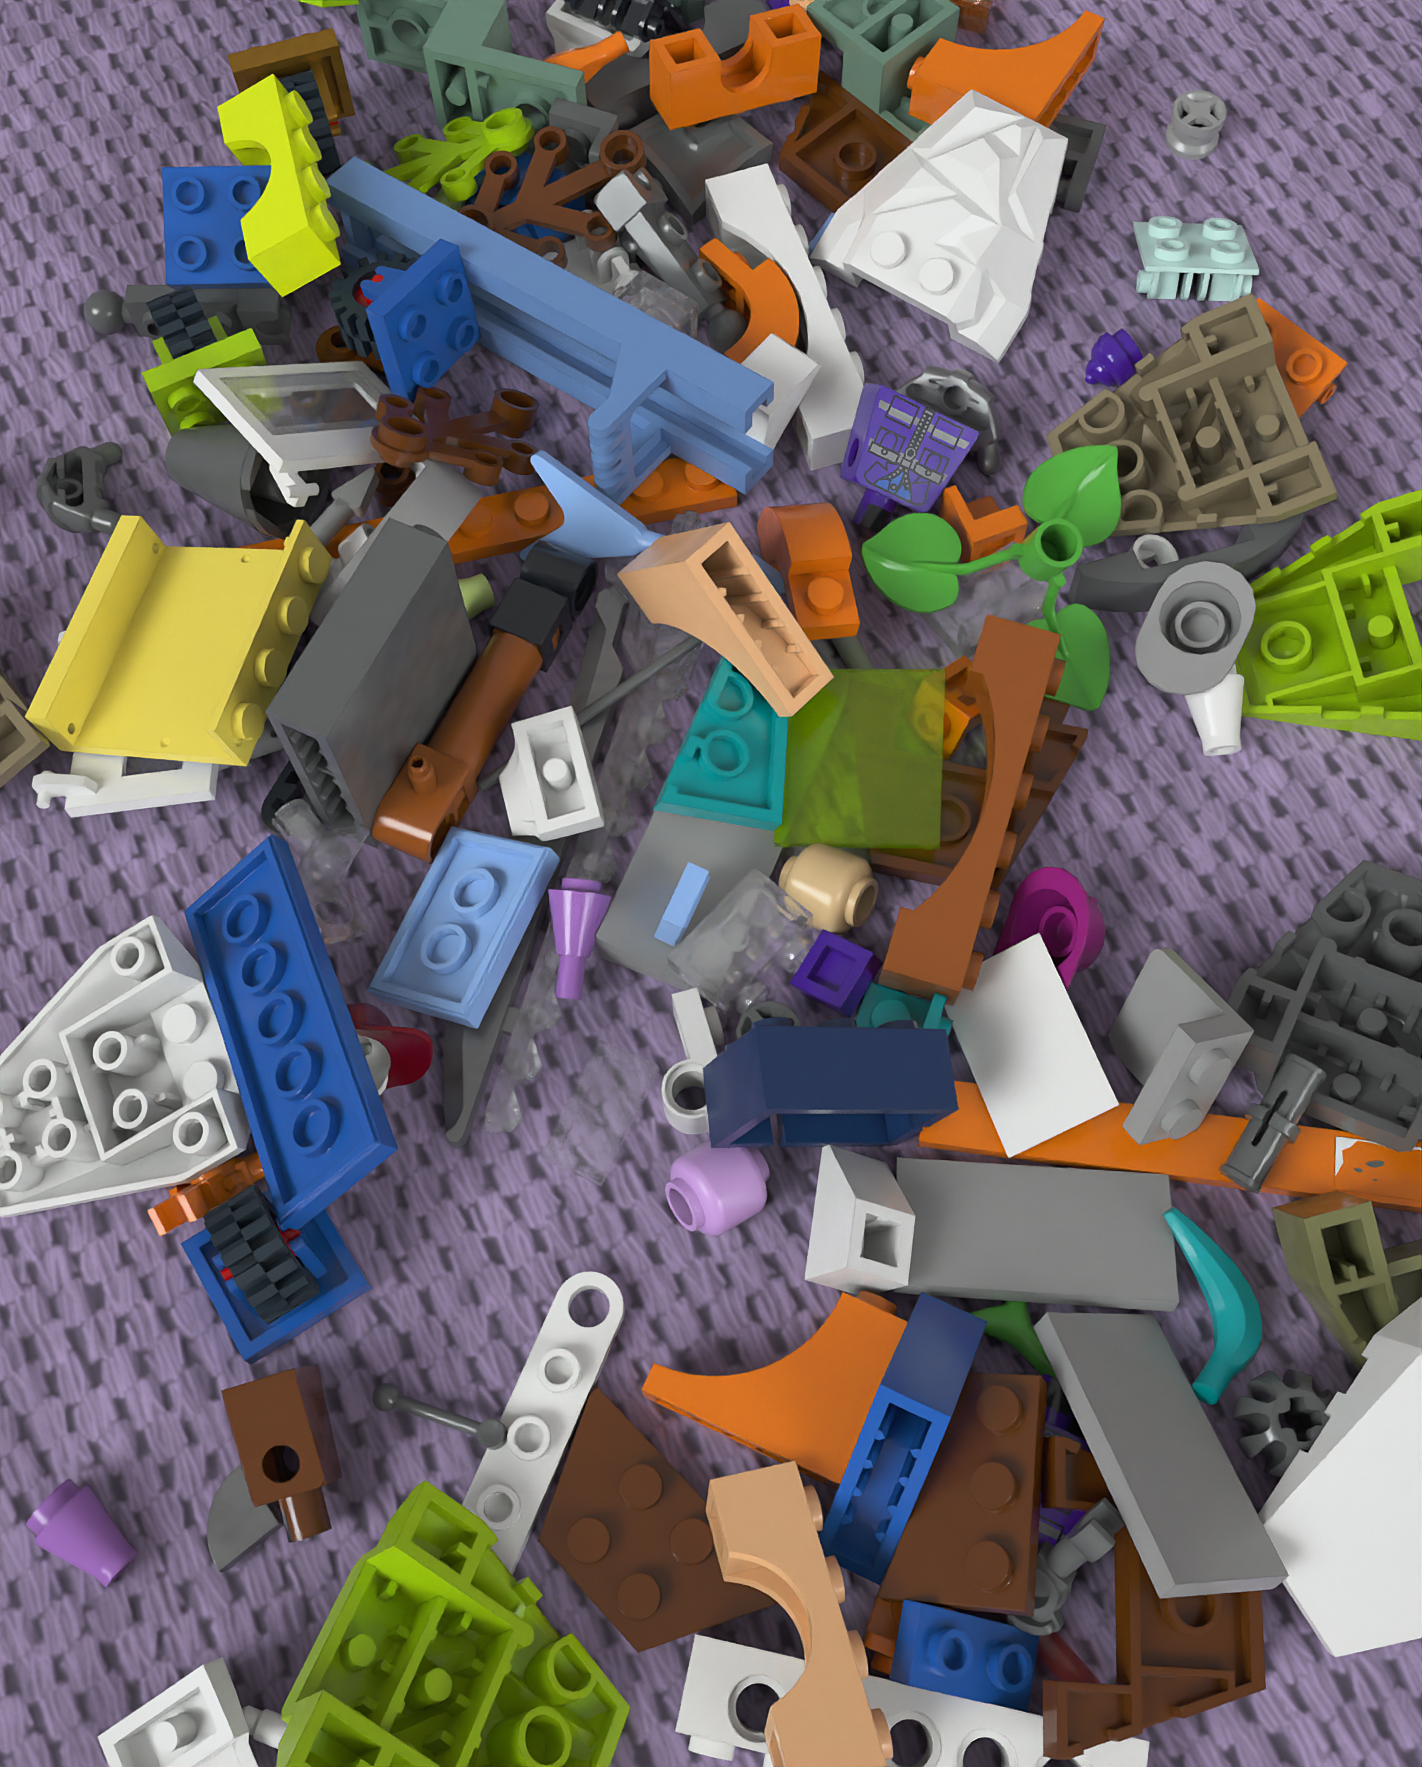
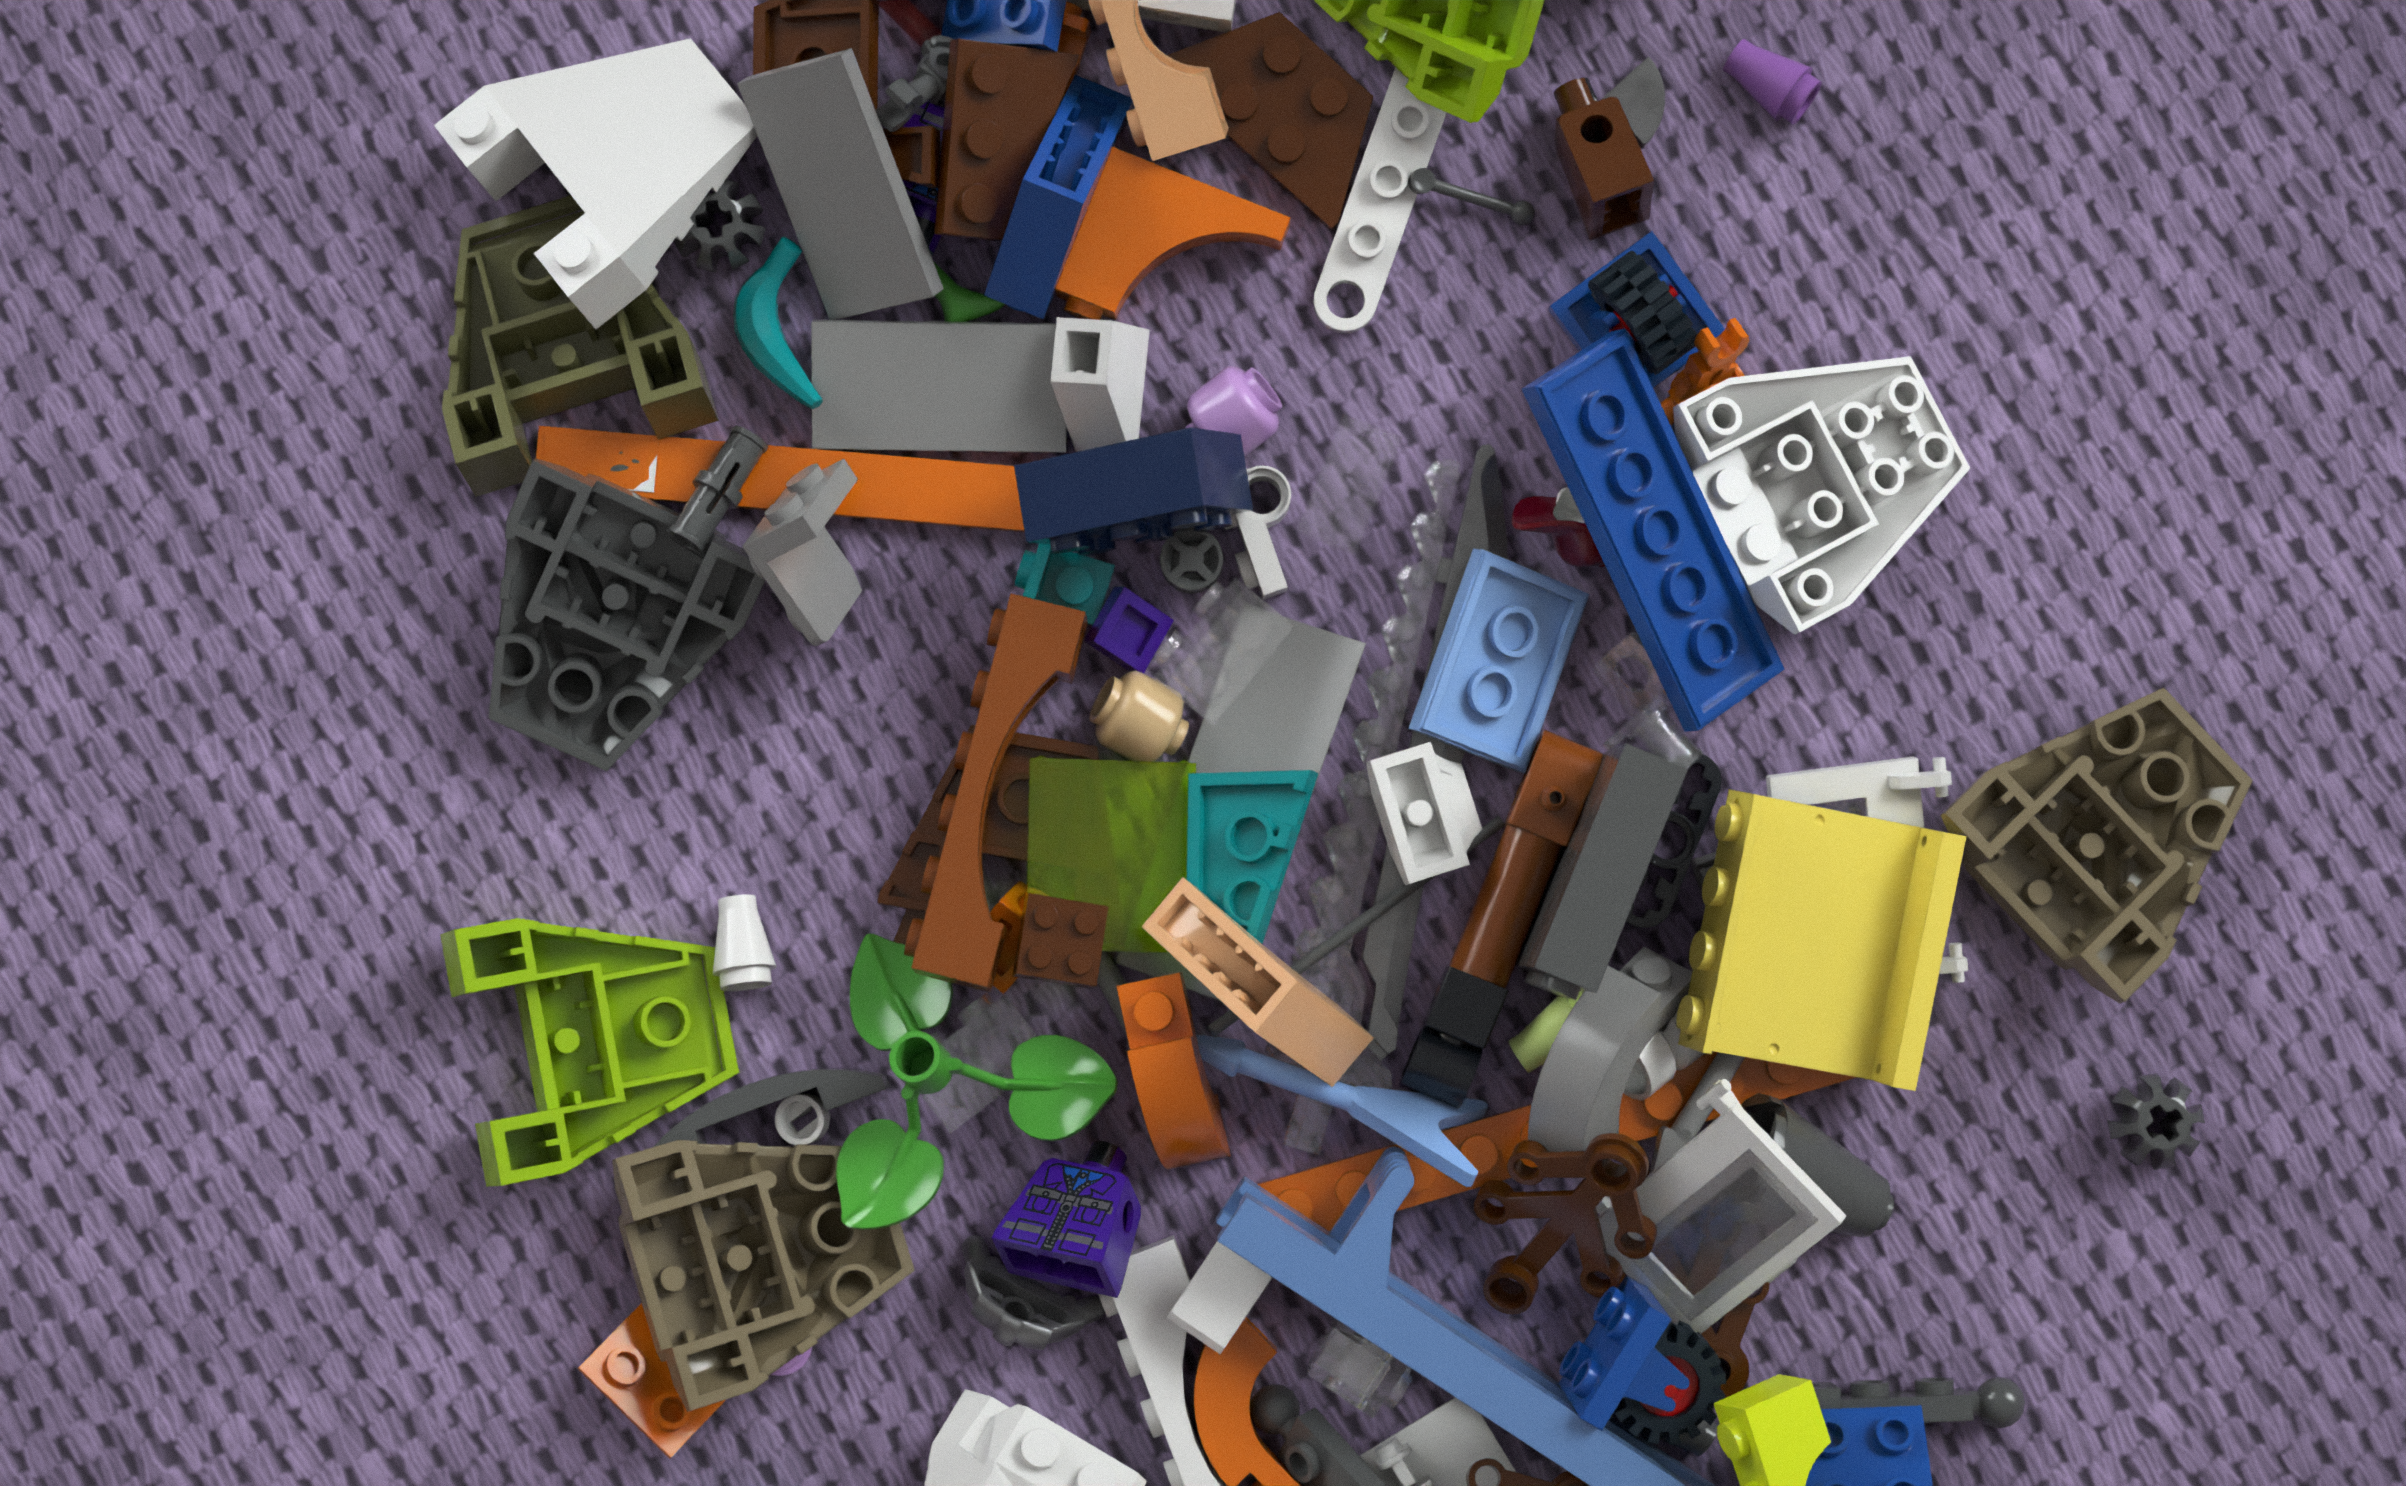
camera: 175 degrees right, 20 degrees up
(75, 492) = (1986, 1150): dark grey piece -> none
(185, 346) = (1868, 1307): lime plate -> none
(576, 917) = (1385, 665): medium lavender cone -> none
(682, 904) = (1282, 677): light blue tile -> none
(912, 666) = (1060, 941): none -> reddish brown piece
(981, 524) = (985, 1158): orange panel -> none
(1028, 1048) = (942, 556): white sticker -> none
(1064, 915) = (925, 666): magenta piece -> none
(1104, 364) = (832, 1386): dark purple plate -> none
(1195, 628) = (765, 1016): light grey piece -> none

